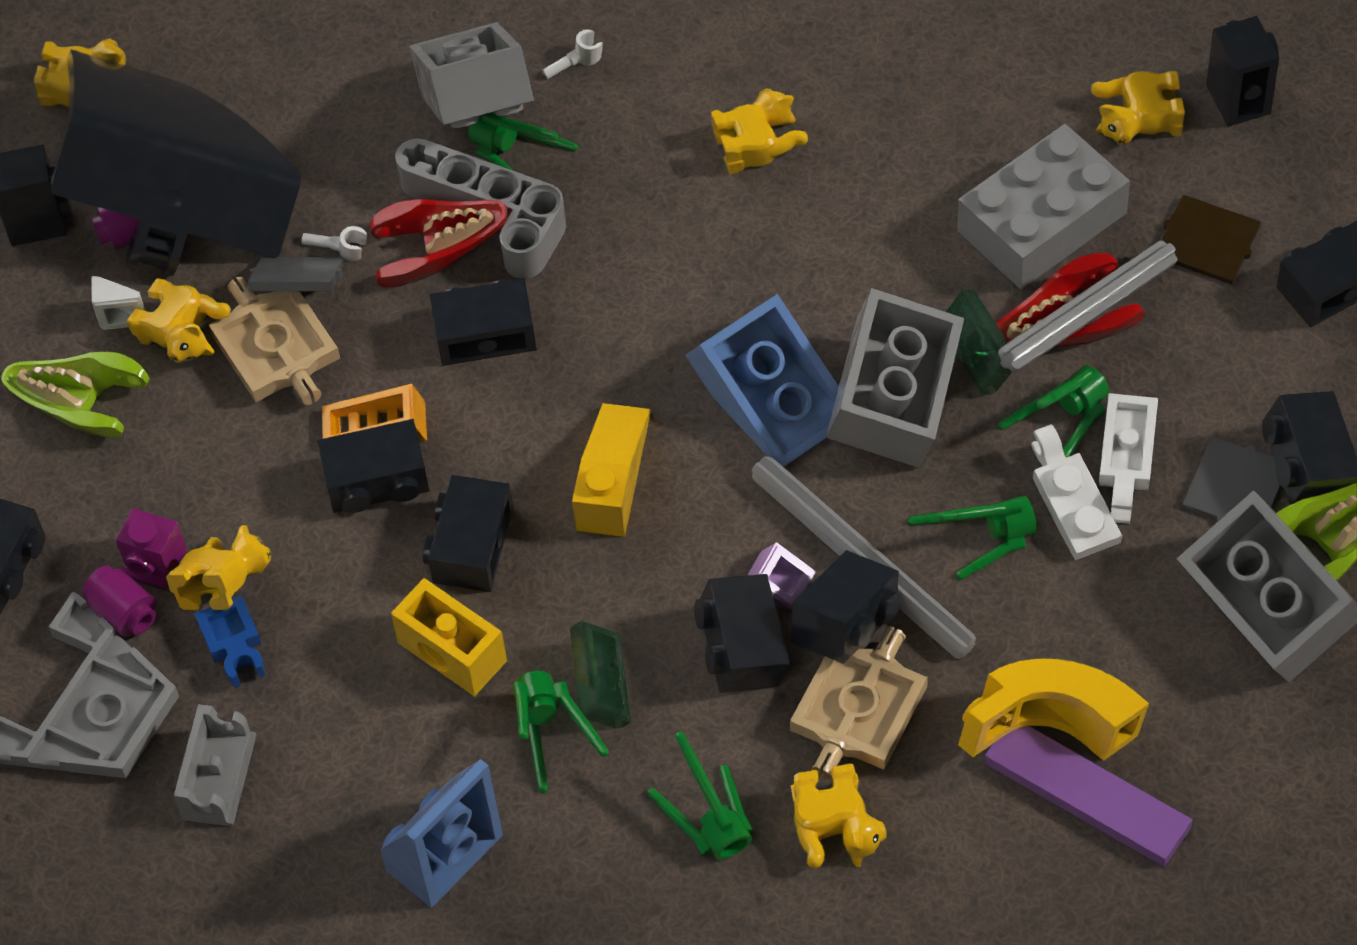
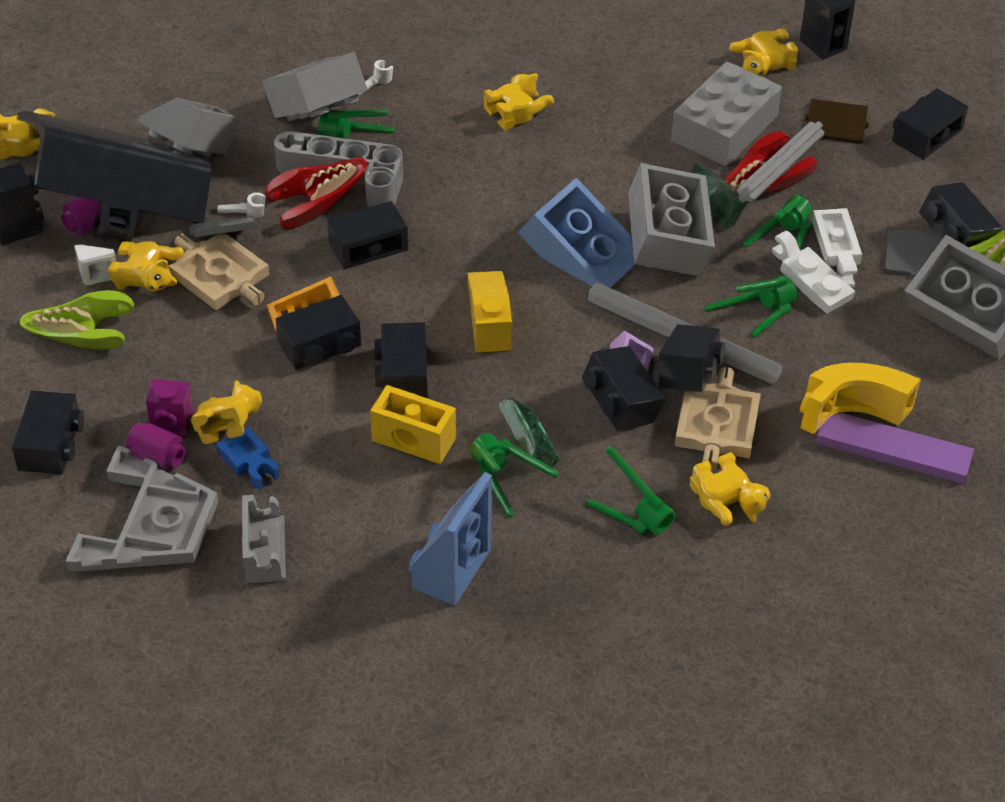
camera: 20 degrees left, 10 degrees down
(295, 110) = (192, 126): none -> light grey slope

